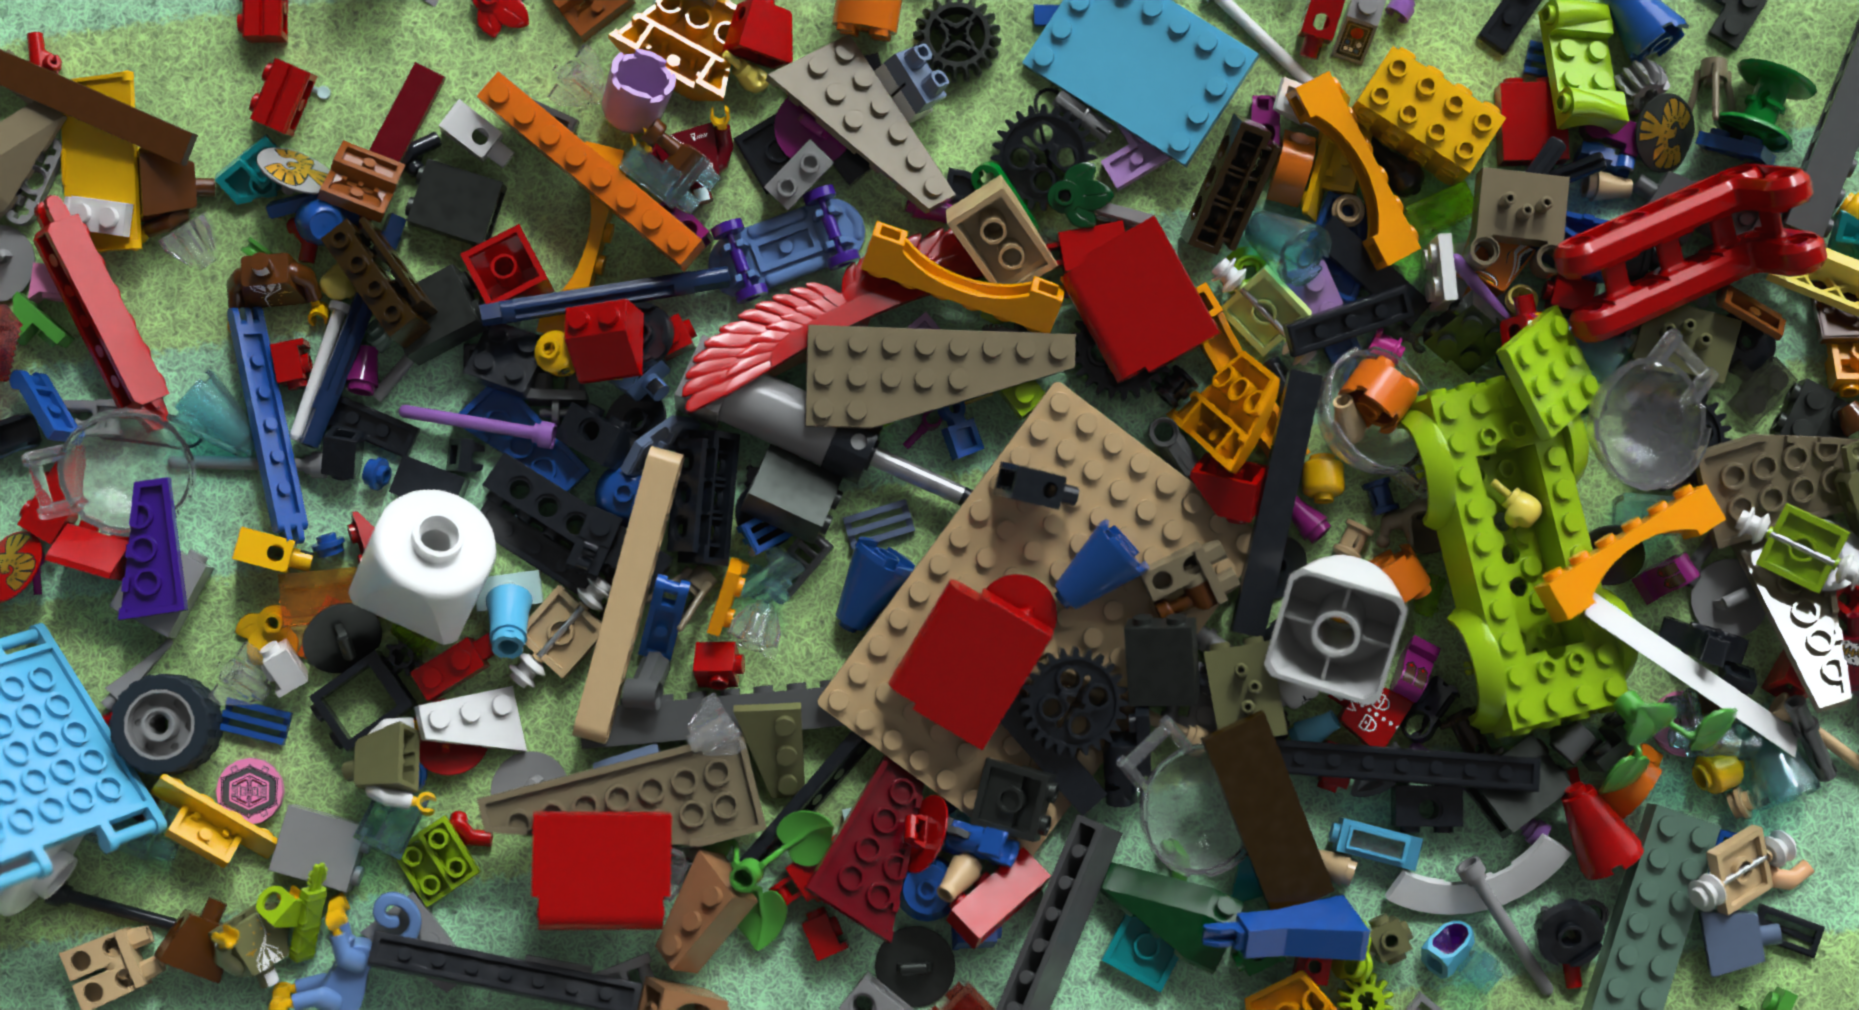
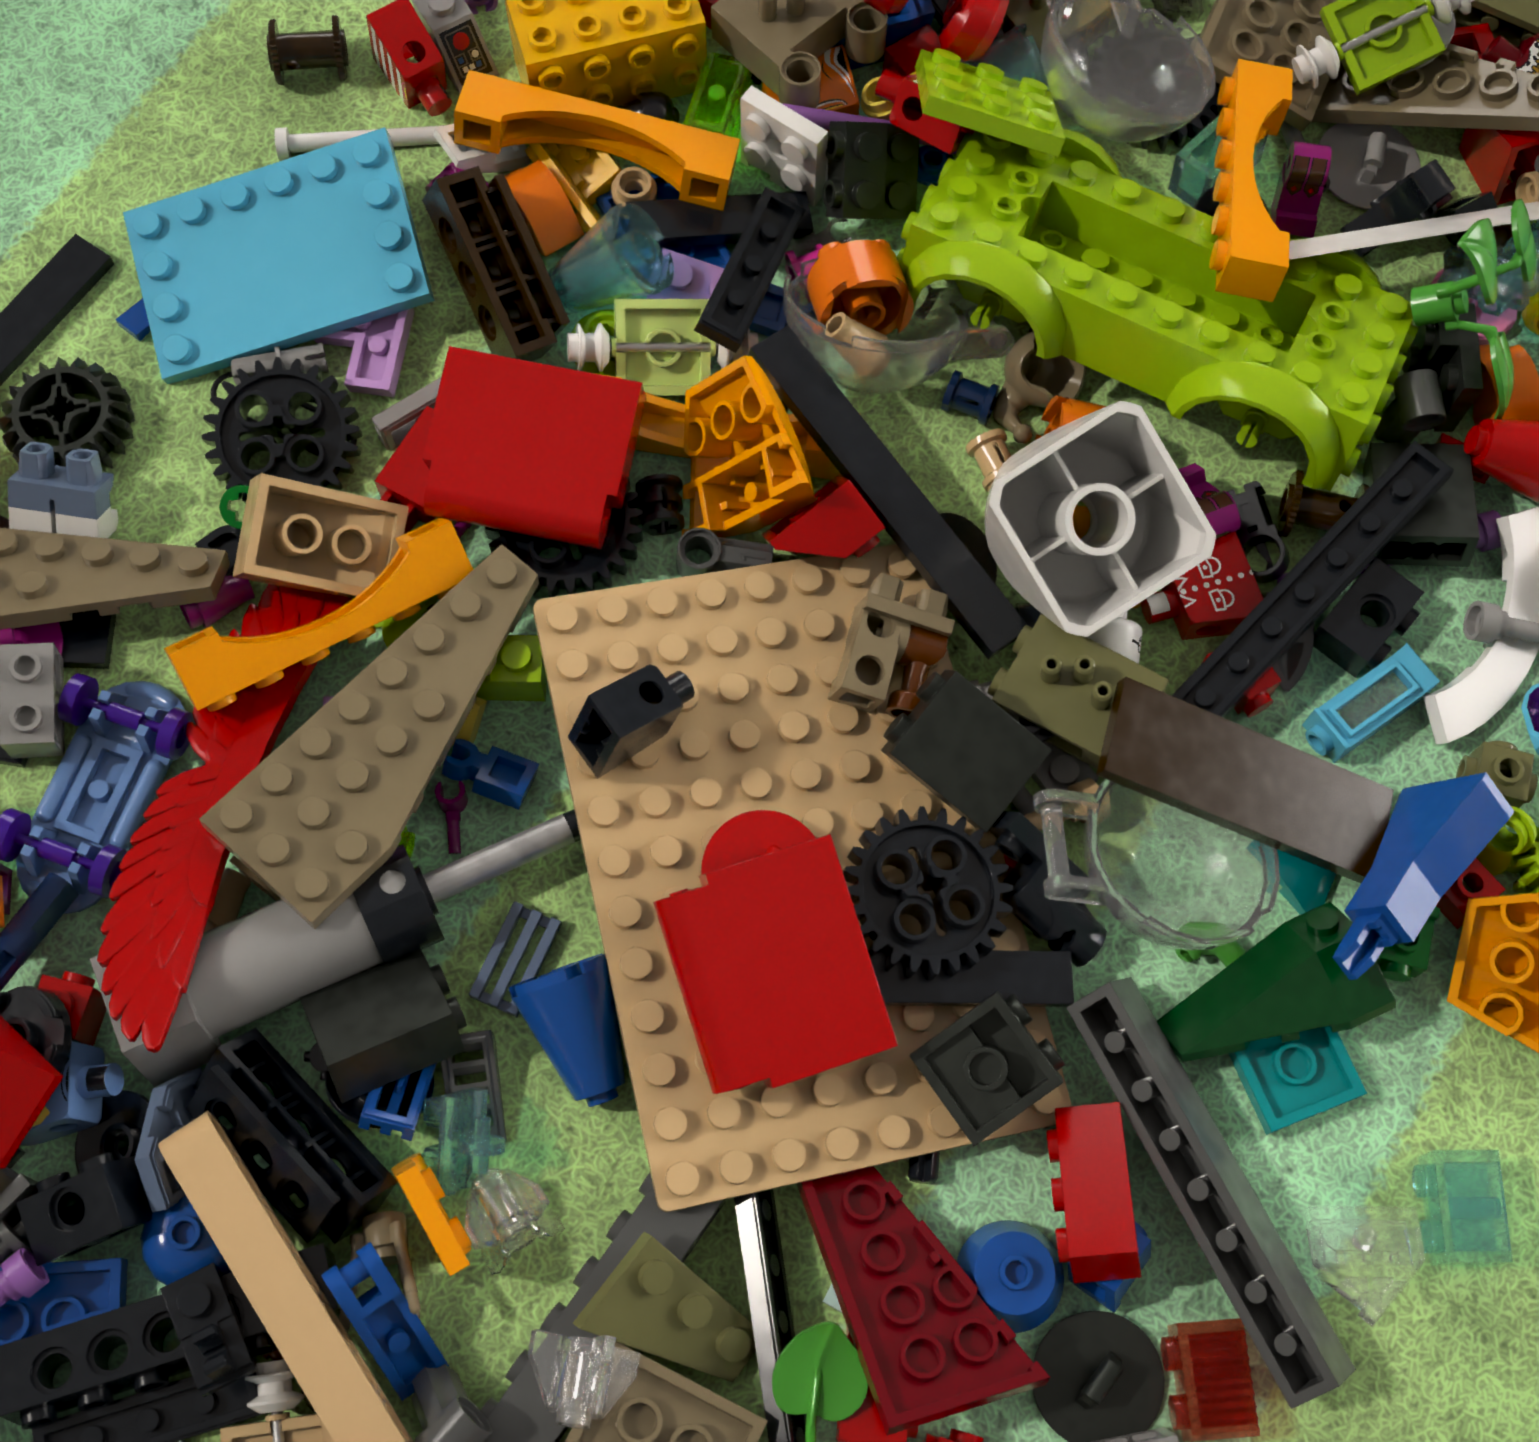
camera: 50 degrees left, 15 degrees down
(717, 665) = (505, 1303): red brick -> none
(929, 833) = (943, 1210): red shield -> none
(960, 875) = (1031, 1213): tan cone -> none
(980, 842) = (997, 1164): blue piece -> none
(1085, 195) = (360, 418): dark green plate -> none
(1099, 567) = (793, 726): blue cone -> none
(1309, 521) = (941, 487): magenta cone -> none
(1315, 728) = (1180, 658): medium azure cone -> none
(1323, 478) = (903, 433): yellow head -> none
(1339, 866) = (1370, 761): tan cone -> none
(1520, 506) = (1110, 250): light yellow piece -> none

